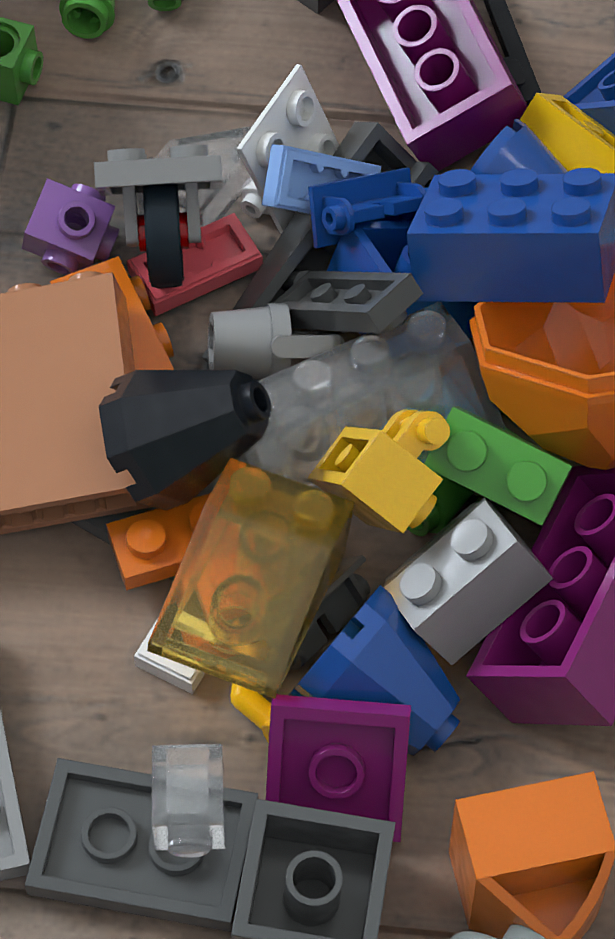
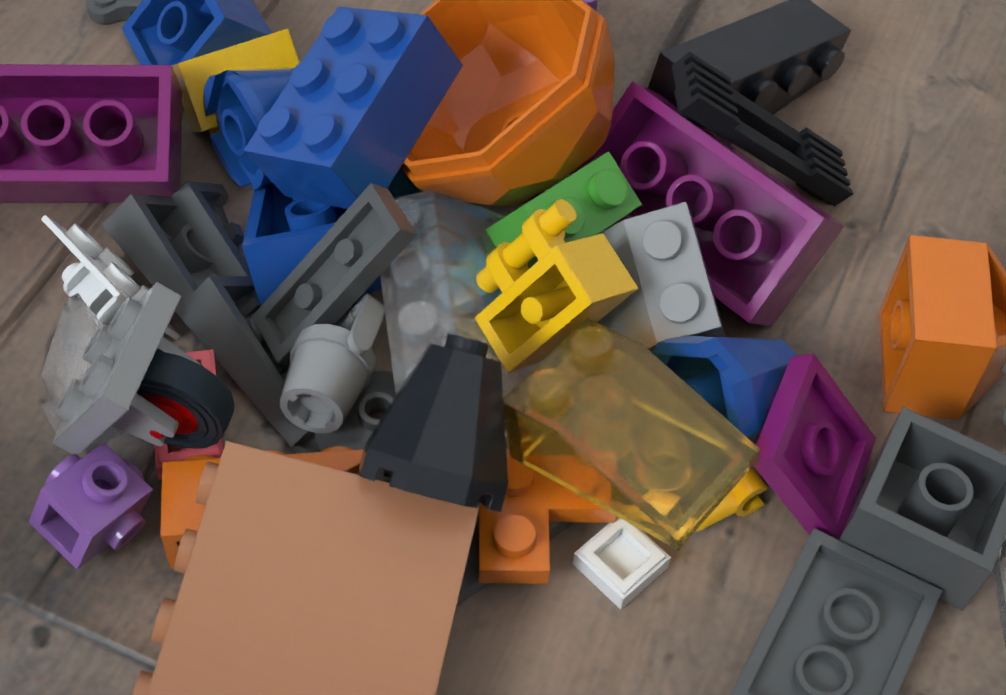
camera: 75 degrees left, 5 degrees down
(188, 799) = (829, 575): clear brick -> none
(295, 169) = (180, 258): light blue plate -> none
(371, 197) = (226, 231): blue hinge -> none

